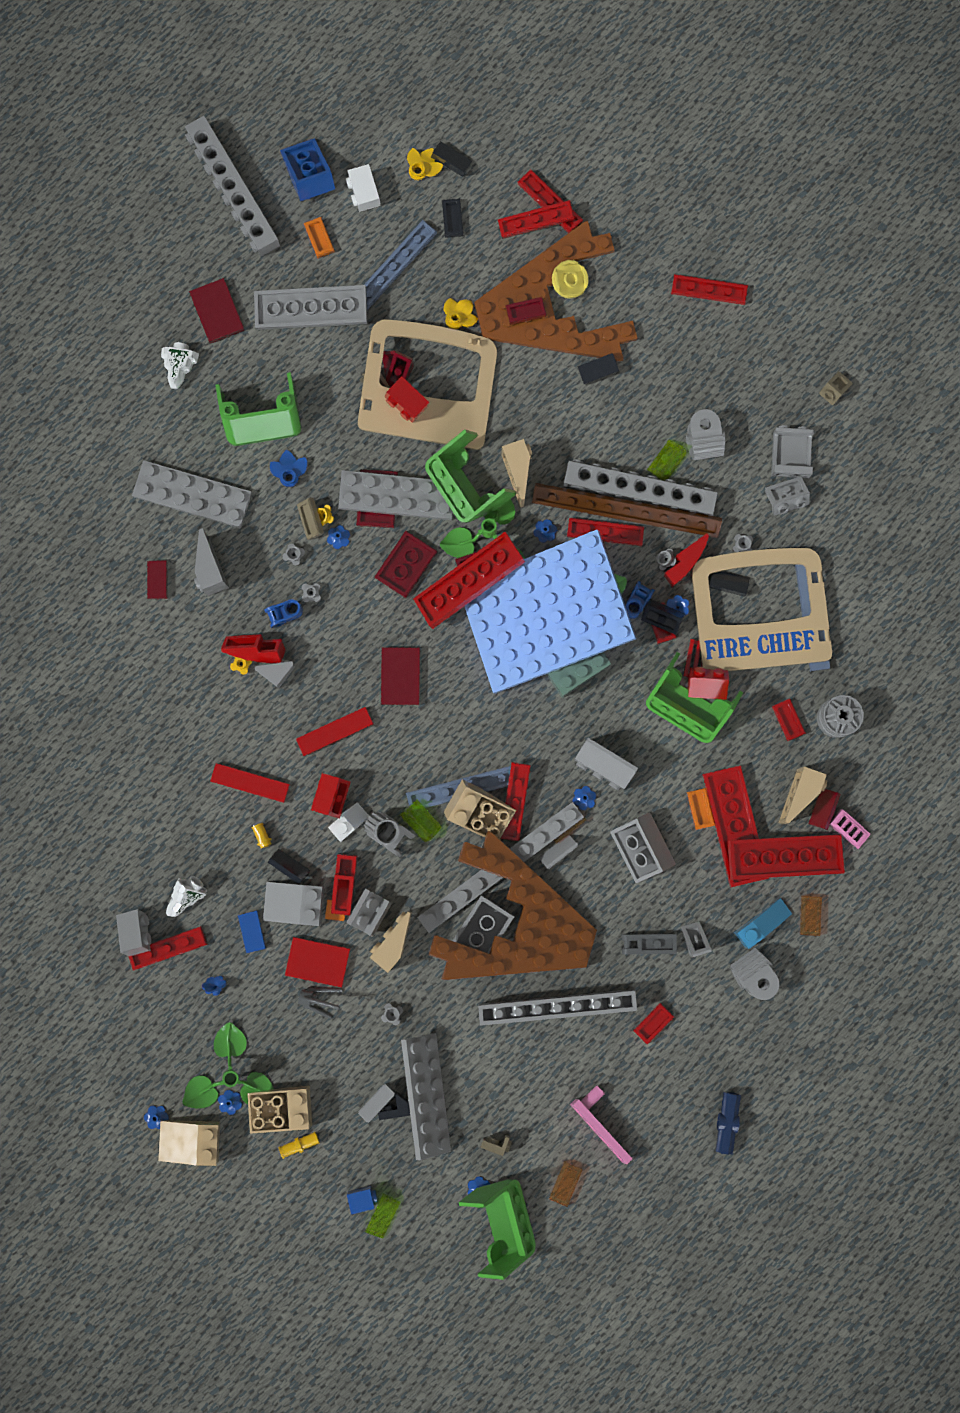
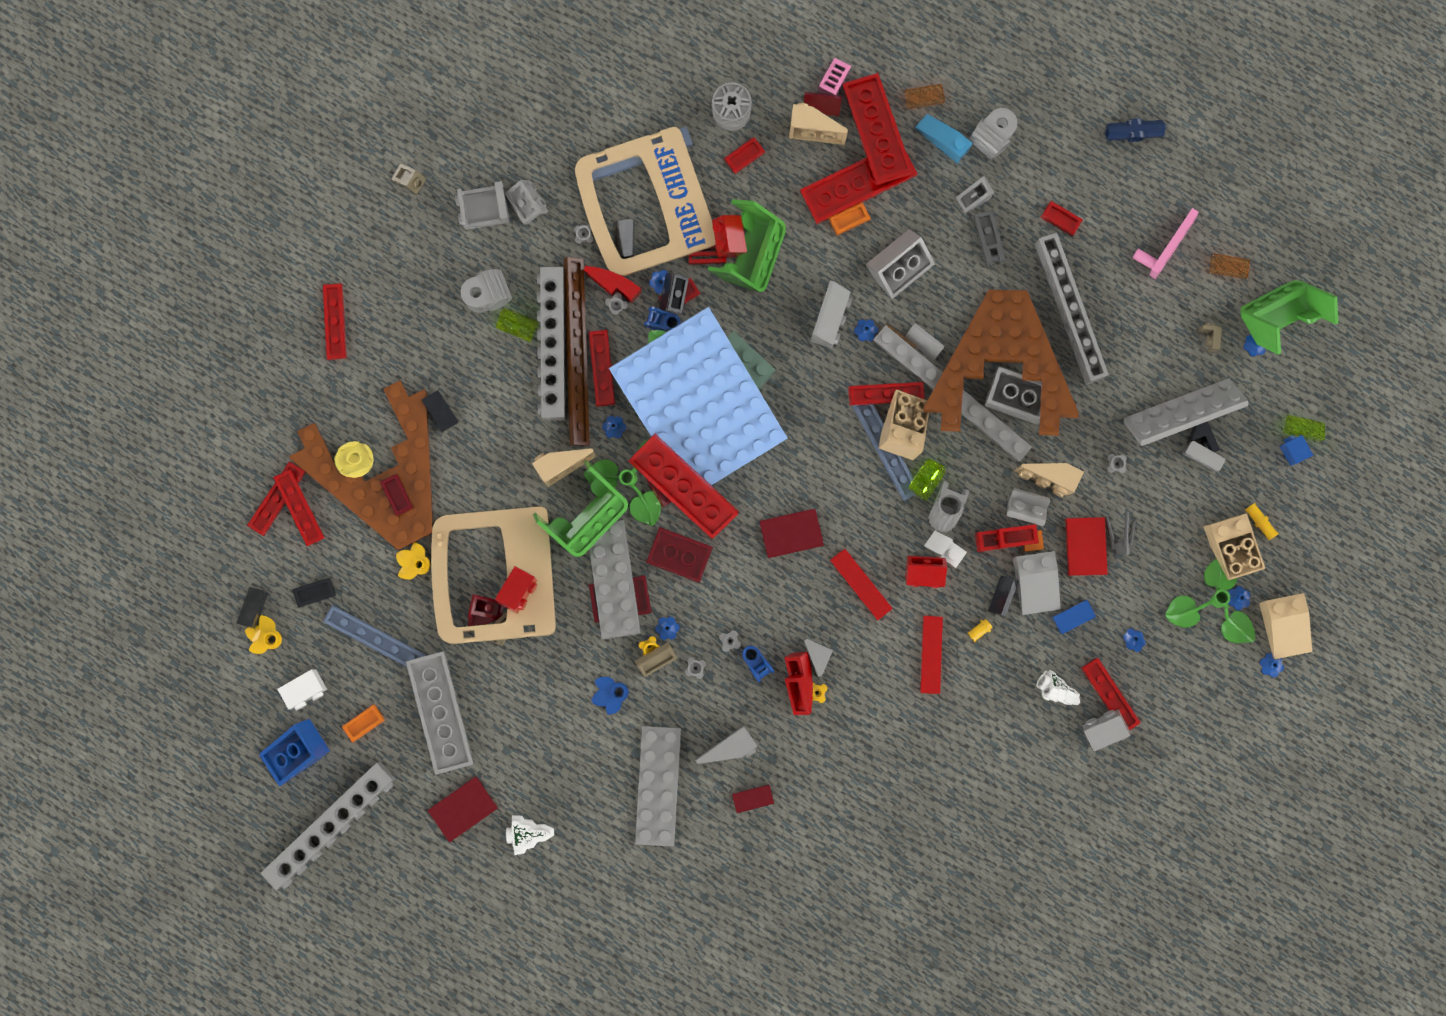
camera: 105 degrees left, 0 degrees up
(261, 425) = (573, 730): bright green windscreen -> none

